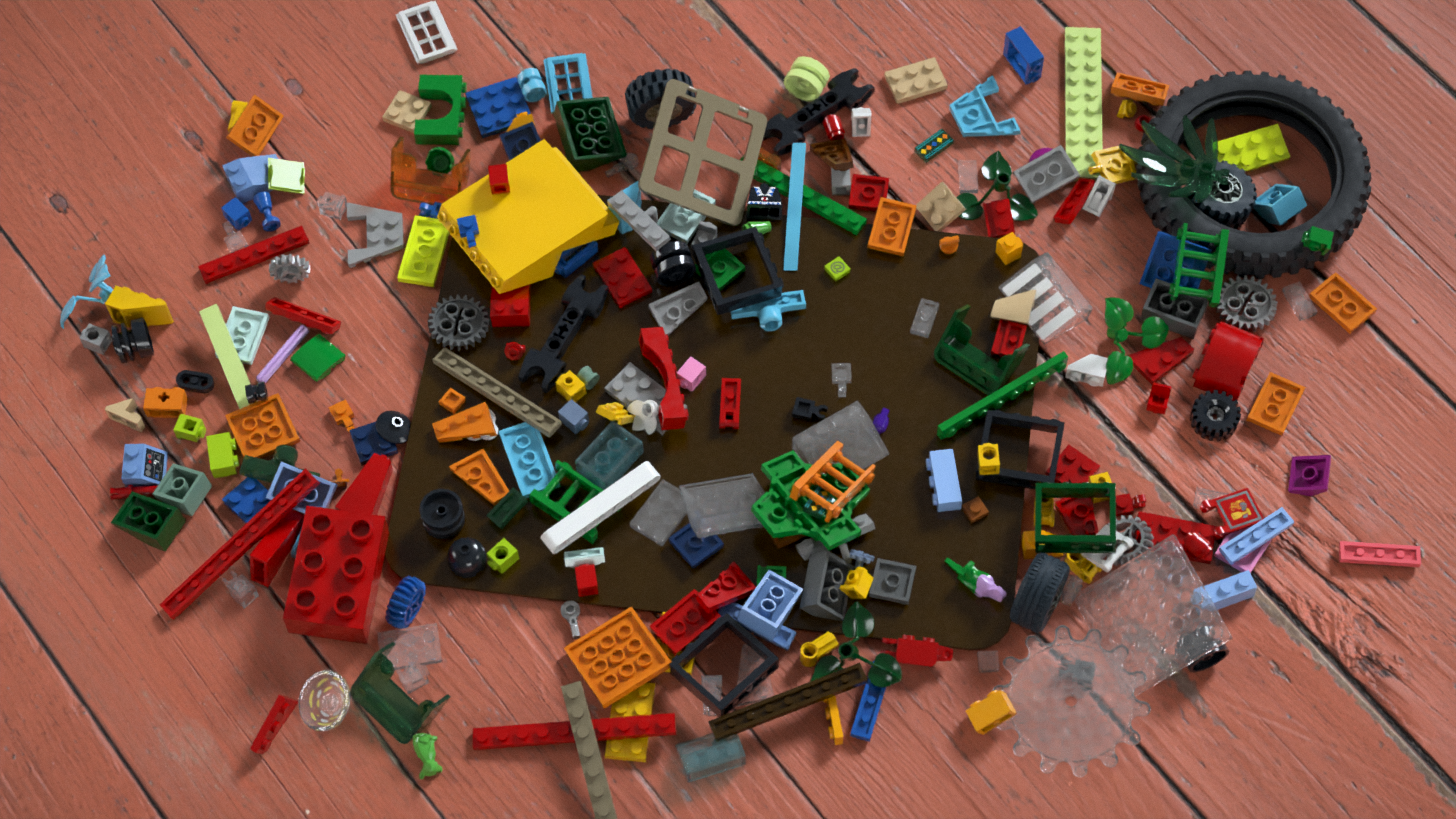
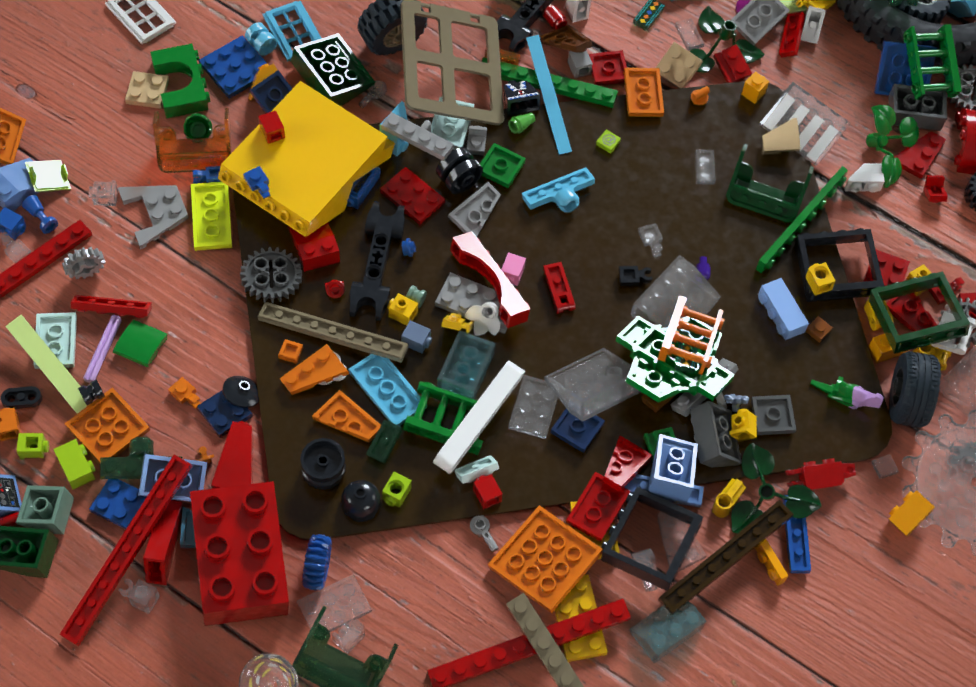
camera: 25 degrees left, 0 degrees up
(598, 328) = (408, 247): none -> blue plate
(747, 298) = (501, 179): black window -> none
(1008, 338) = (786, 167): red plate -> none

